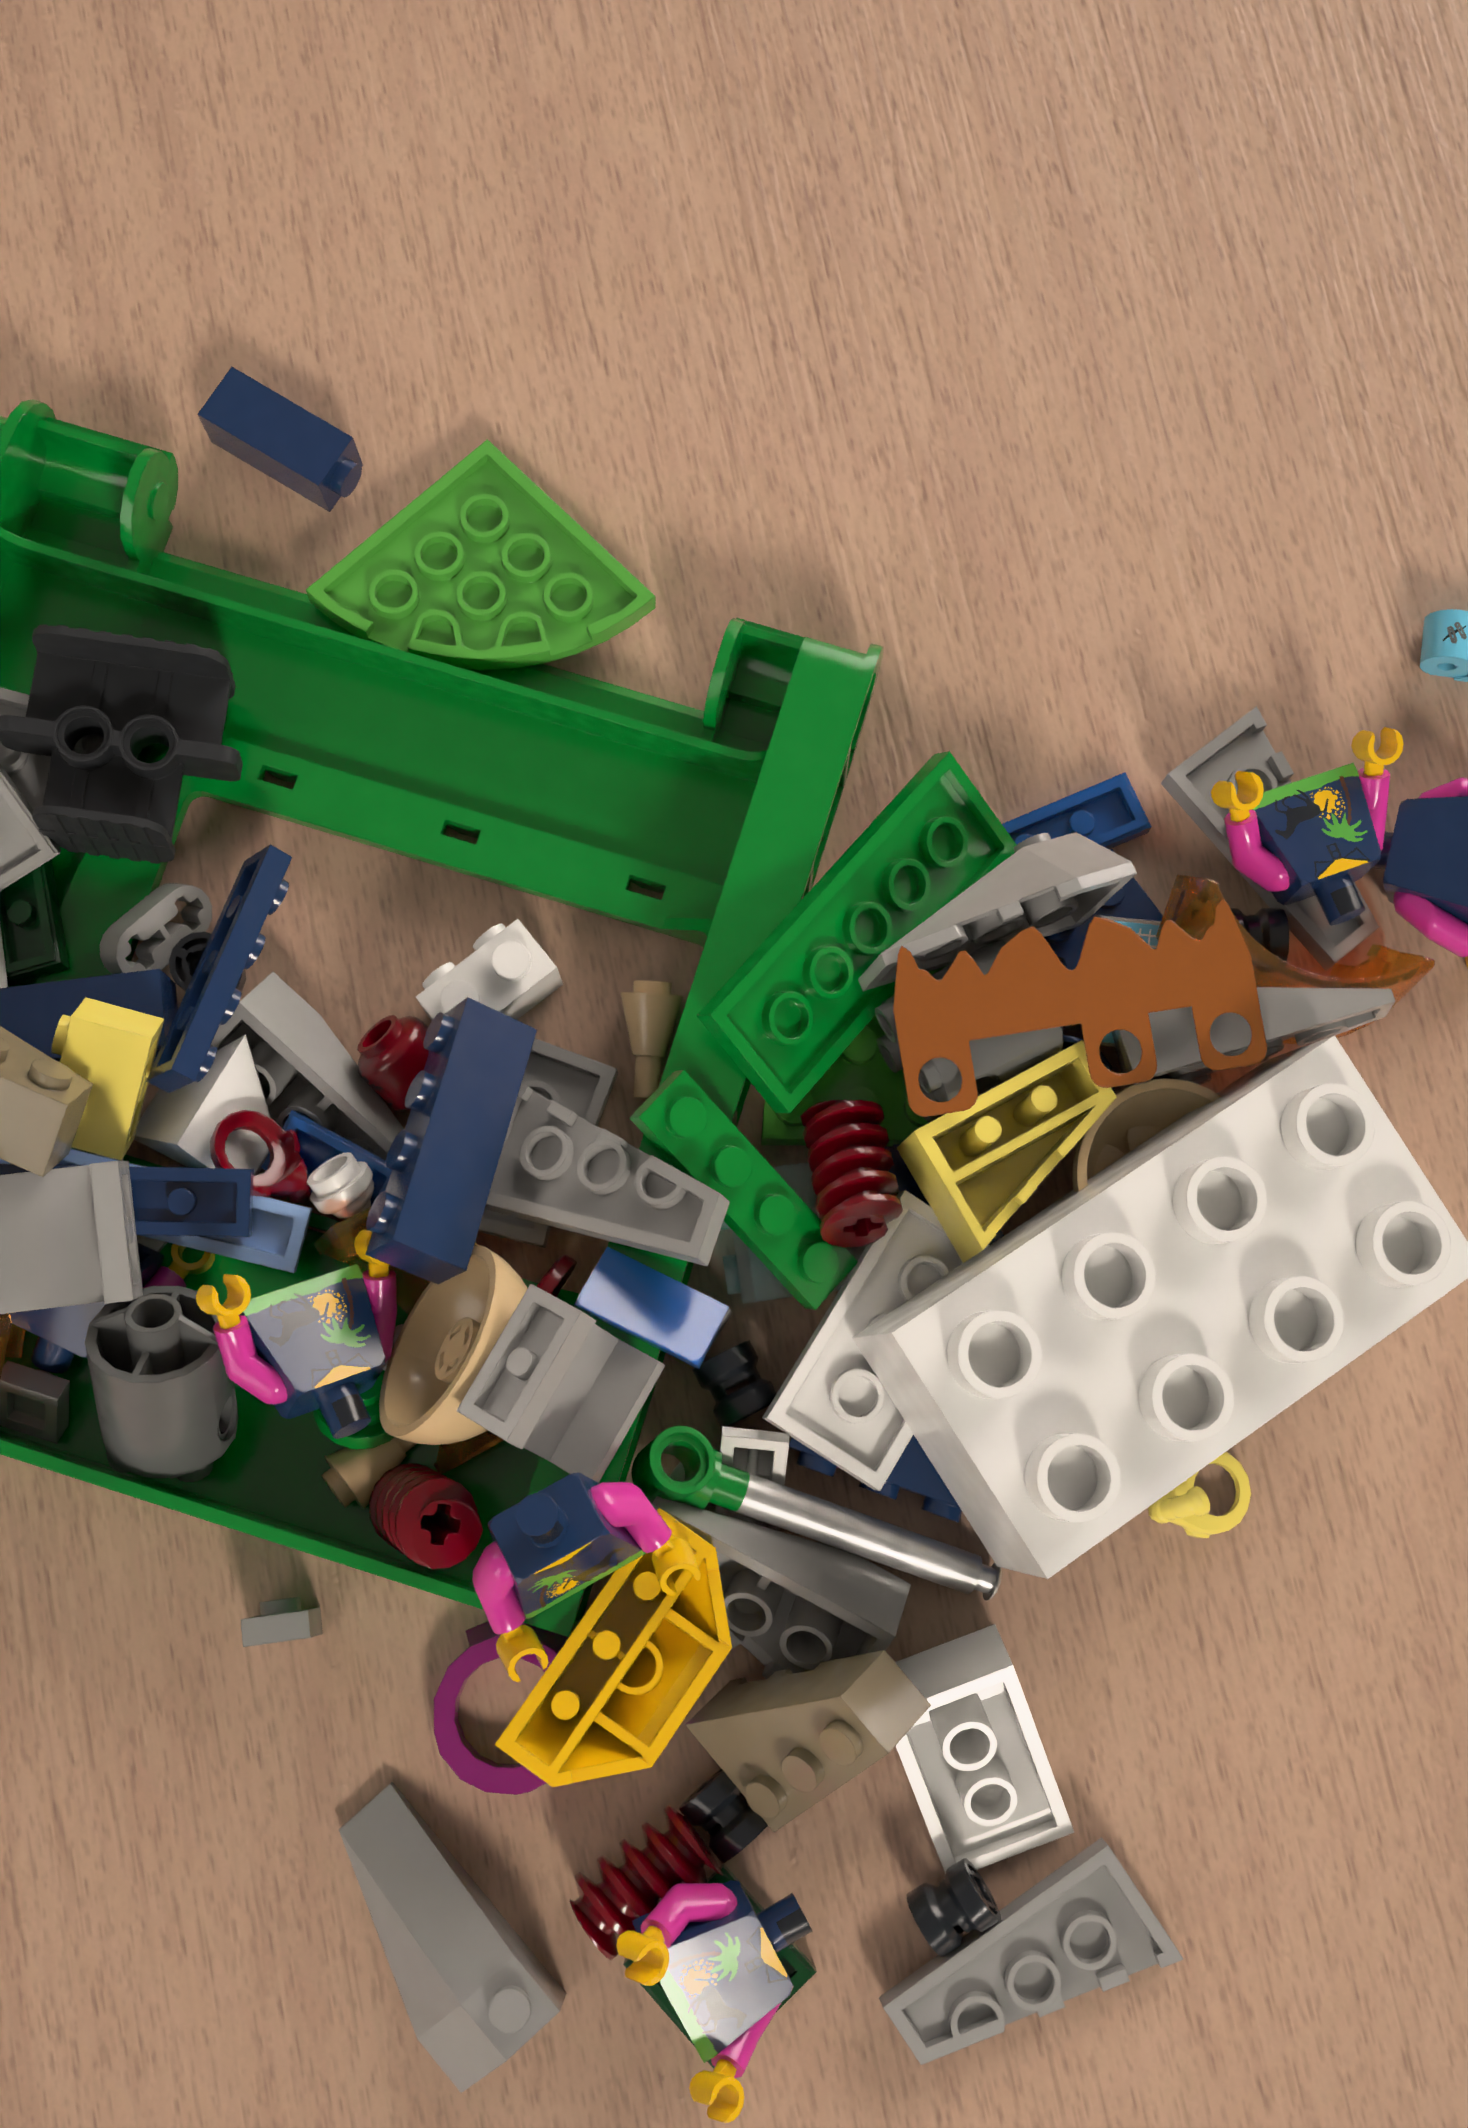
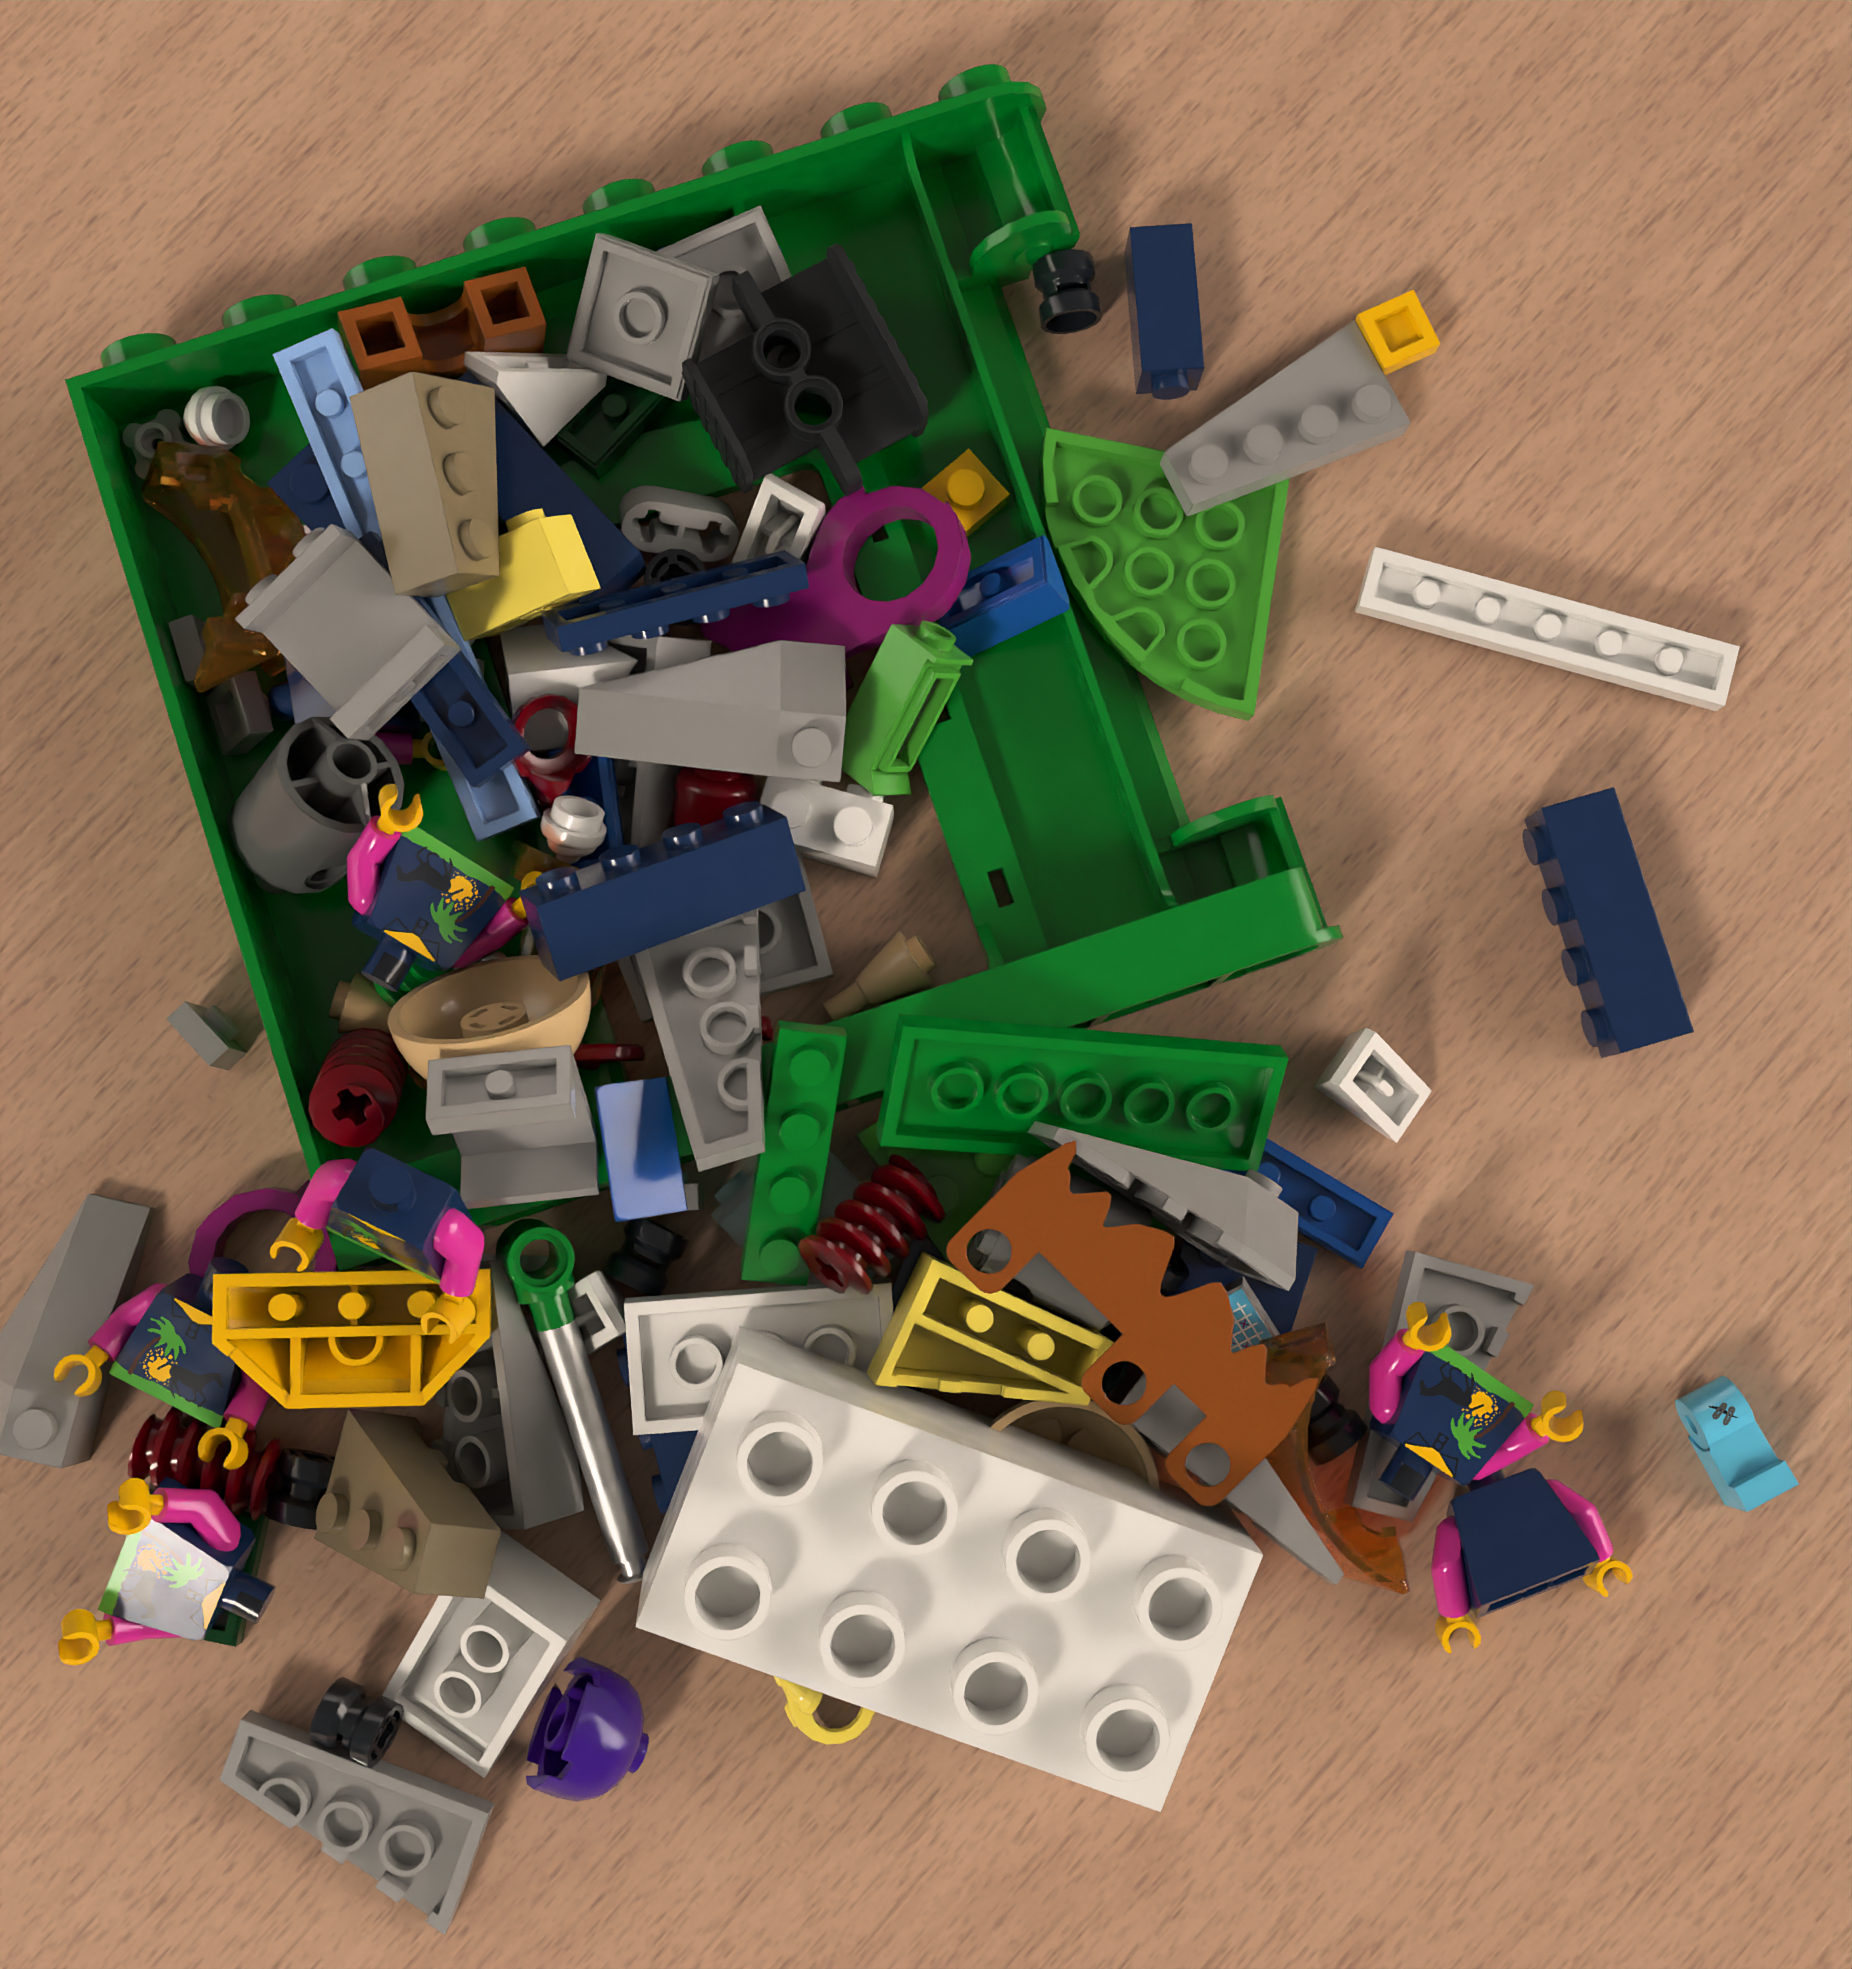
camera: 50 degrees right, 5 degrees up
(213, 503) = (1066, 291): none -> black wheel
(218, 845) = (780, 521): none -> white slope
(309, 692) = (969, 491): none -> yellow plate
(330, 871) = (832, 606): none -> magenta animal
(352, 977) = (740, 712): none -> light grey wedge
(415, 719) = (1007, 597): none -> blue slope
(437, 284) = (1398, 332): none -> yellow plate
(441, 858) = (900, 705): none -> bright green window
(447, 409) = (1294, 422): none -> light grey wing
(533, 1836) = (167, 1350): none -> torso
(751, 339) = (1547, 629): none -> white plate
(1010, 714) = (1374, 1084): none -> white slope
(1014, 454) = (1606, 924): none -> dark blue brick
(1098, 1713) = (587, 1734): none -> dark purple cylinder

